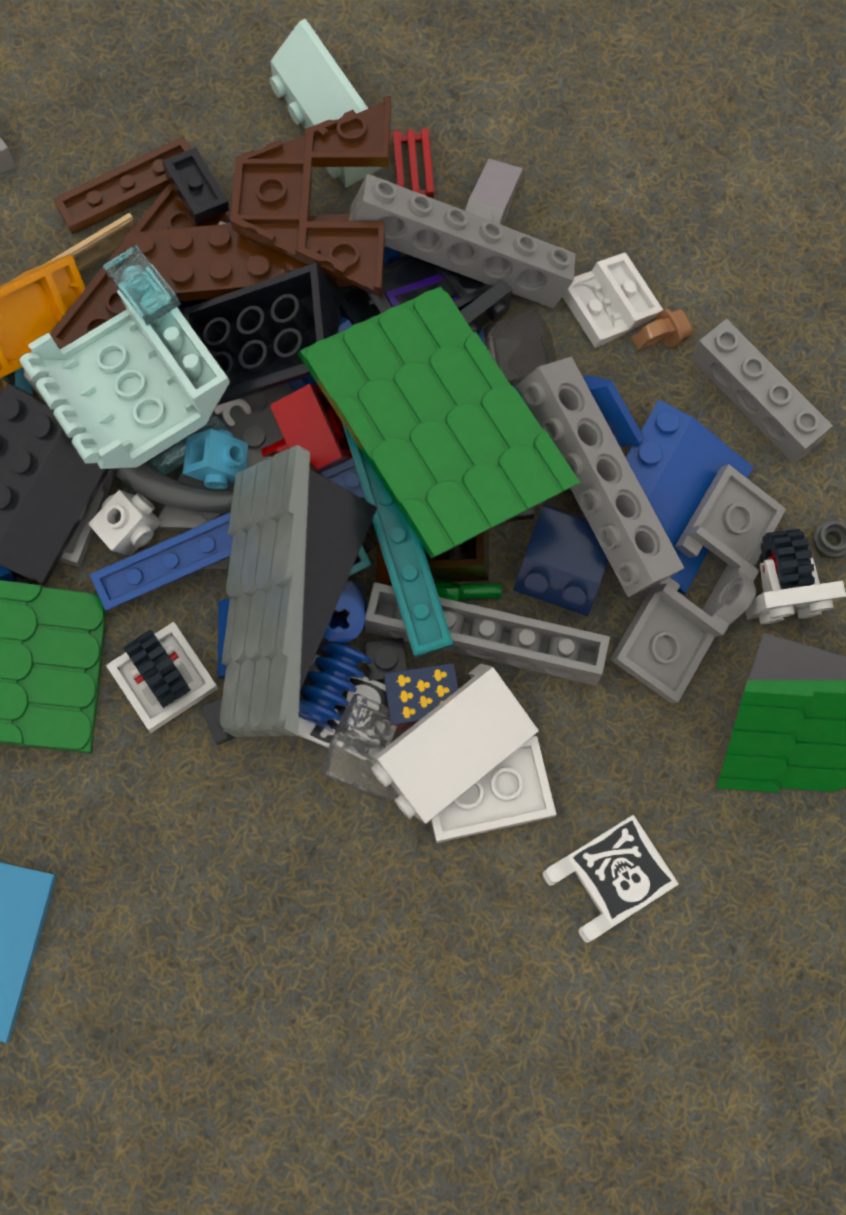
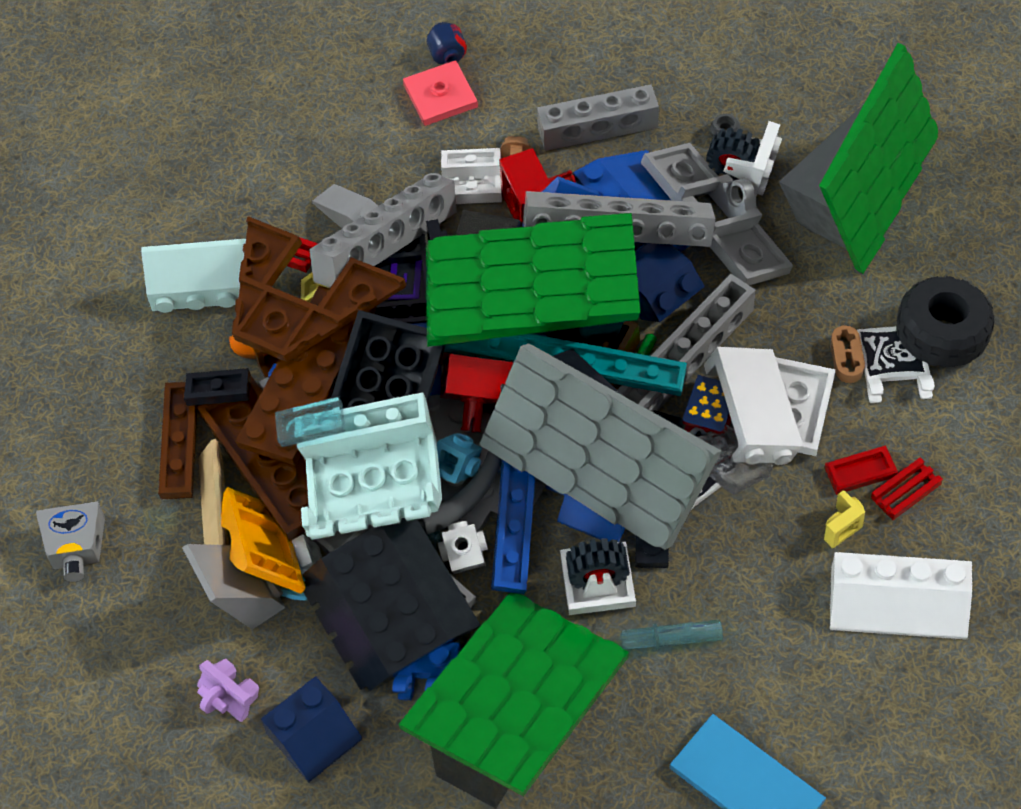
camera: 55 degrees left, 15 degrees down
(130, 787) = (671, 634): none -> clear light blue axle
(291, 1019) = (900, 595): none -> white slope
(352, 912) = (846, 521): none -> light yellow bracket
(443, 902) = (861, 469): none -> red tile
(476, 980) = (925, 472): none -> red tile
(586, 810) = (854, 353): none -> medium nougat beam
(618, 355) = (521, 174): none -> red brick
(704, 212) = (440, 93): none -> coral plate
(724, 906) = (950, 301): none -> black tyre
(771, 184) = (446, 43): none -> dark blue head

